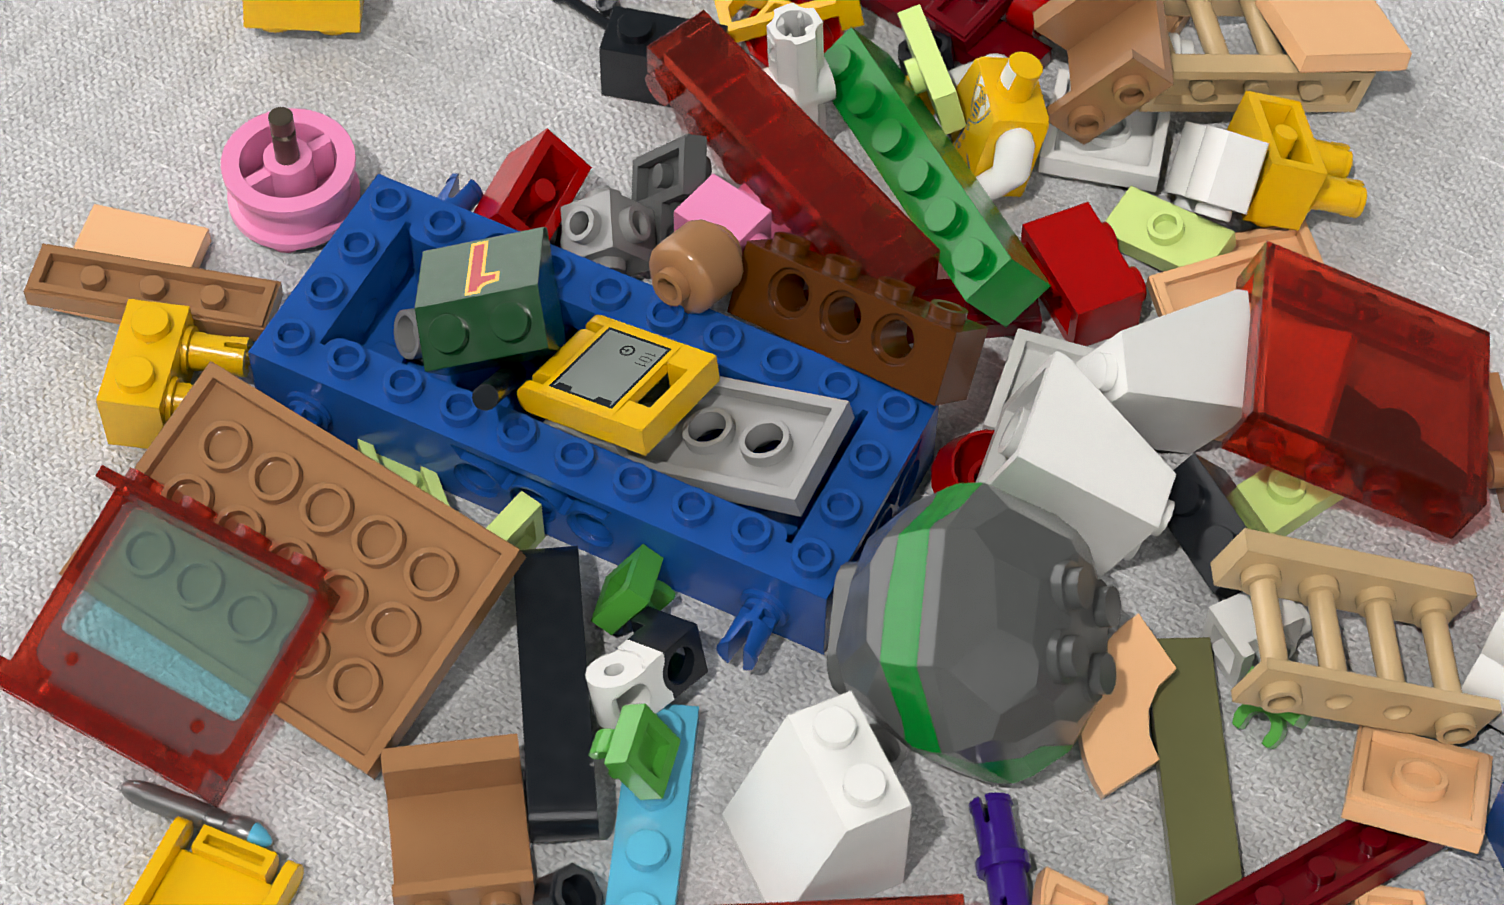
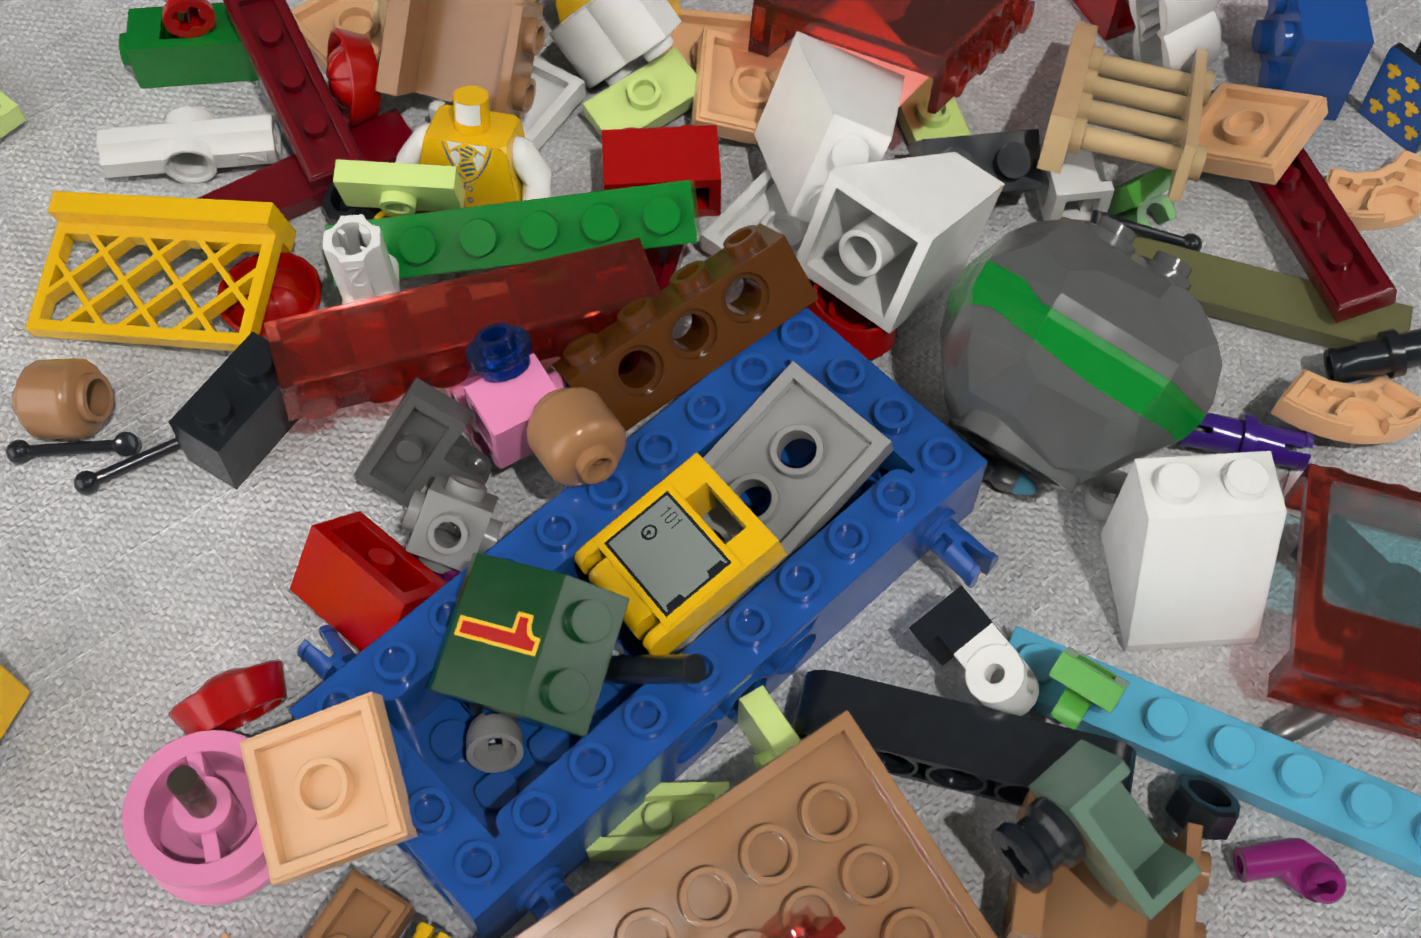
camera: 70 degrees left, 5 degrees up
(319, 219) = (327, 789): none -> light nougat tile
(391, 150) = (233, 698): none -> red hat
(452, 732) = (1038, 844): none -> black wheel
(493, 794) = (1118, 837): none -> sand green panel
(631, 589) = (875, 642): bright green tile -> none
(752, 181) = (500, 352): none -> clear blue plate
(1243, 772) = (1188, 241): none -> black hinge

